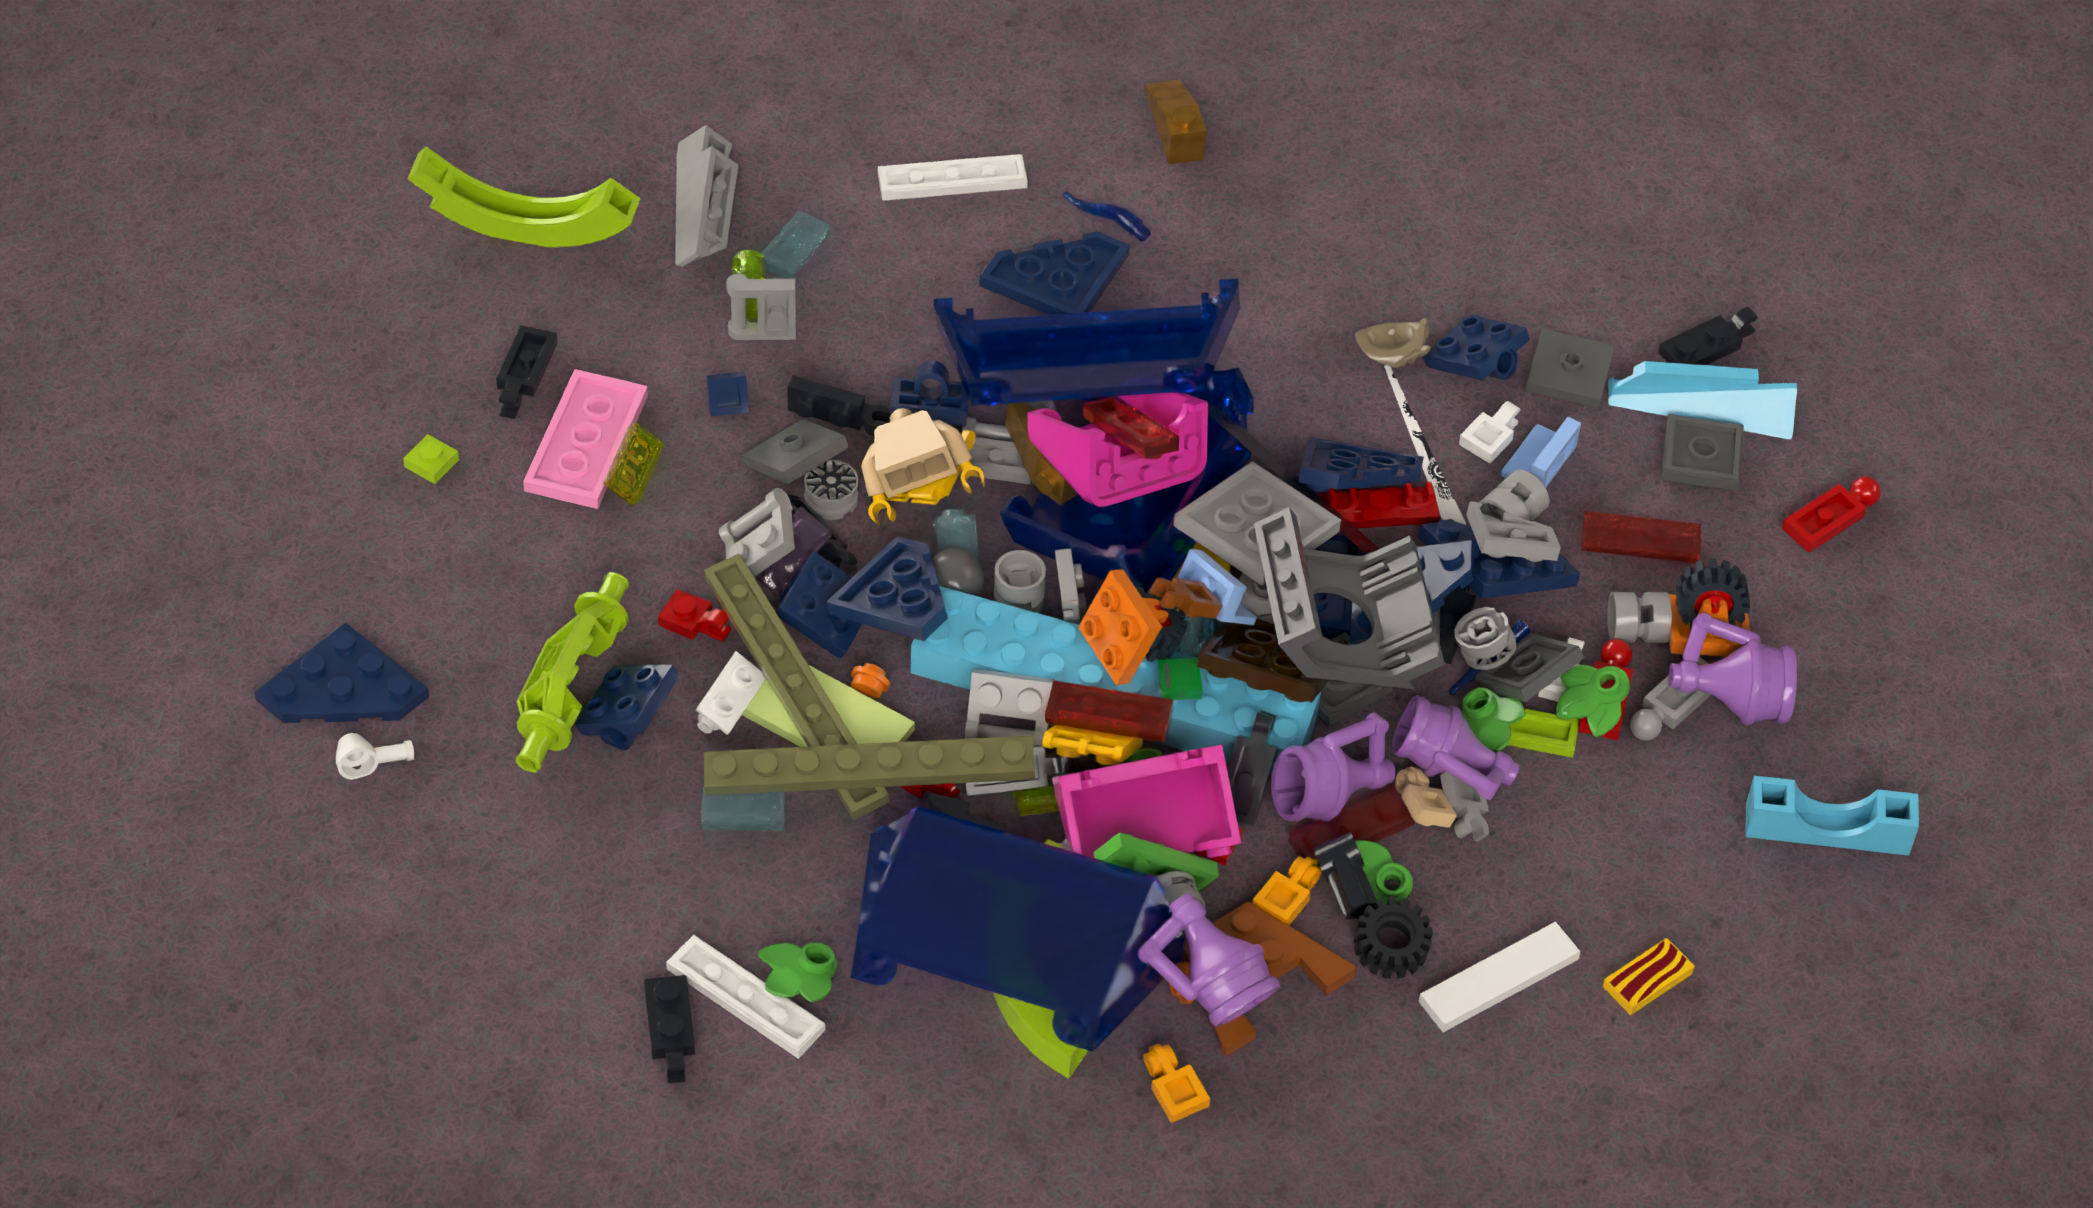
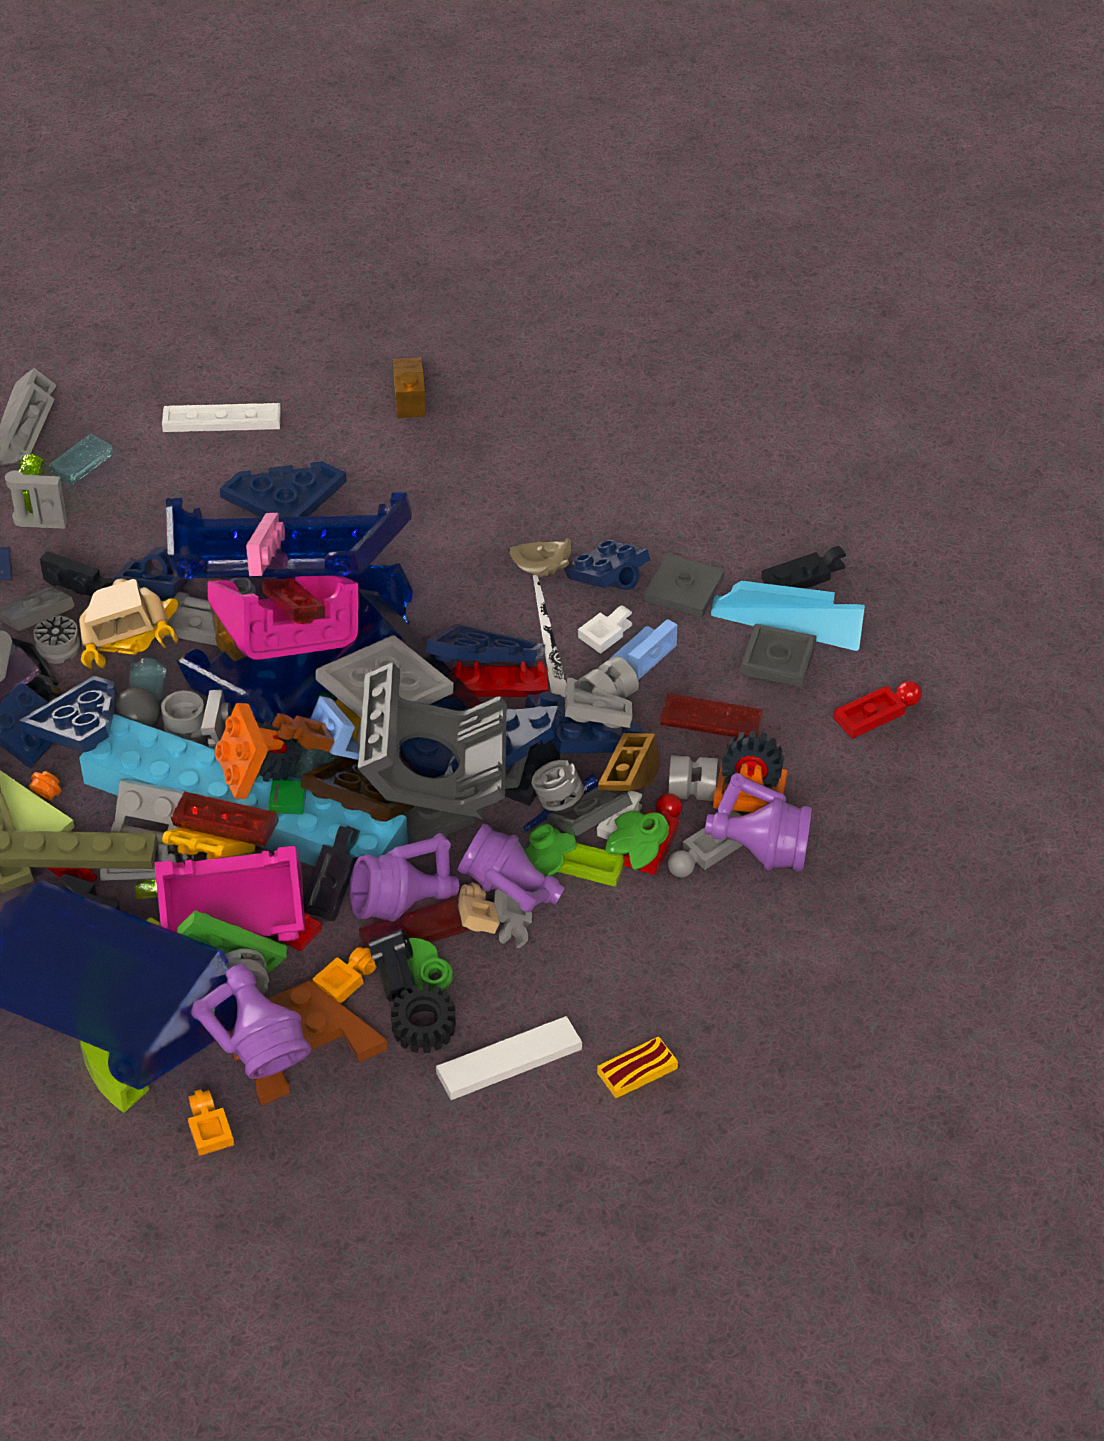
camera: 10 degrees right, 5 degrees down
(1076, 355) = (264, 543): none -> bright pink plate
(1115, 213) = (351, 455): clear blue animal -> none
(1569, 606) = (632, 763): none -> pearl gold slope
(1878, 823) = (781, 942): medium azure arch -> none

